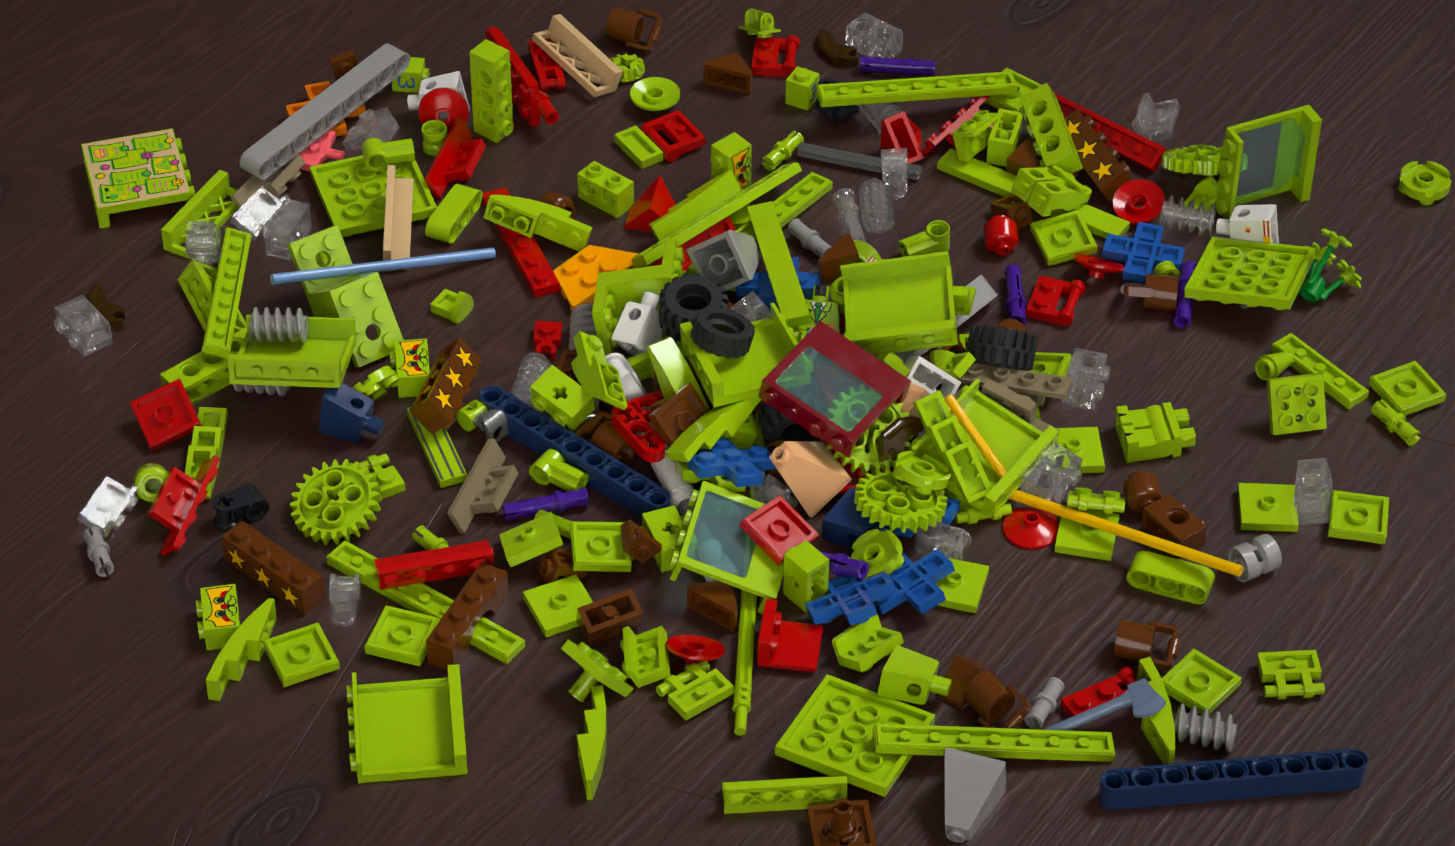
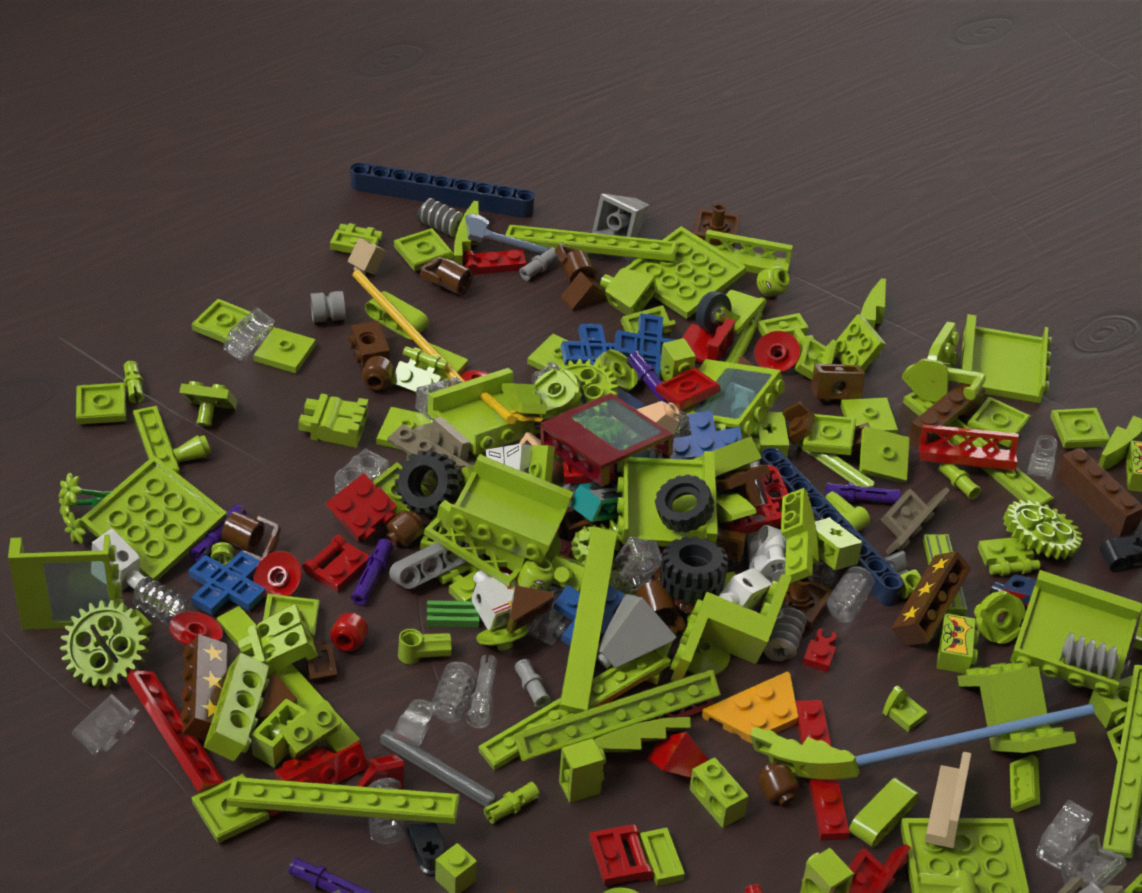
camera: 165 degrees left, 0 degrees up
(491, 631) = (931, 375): none -> lime plate
(734, 746) = (773, 281): none -> lime head
(769, 686) = (717, 307): none -> plate
(1060, 334) = (362, 508): none -> red plate
(1255, 634) = (366, 256): none -> tan brick

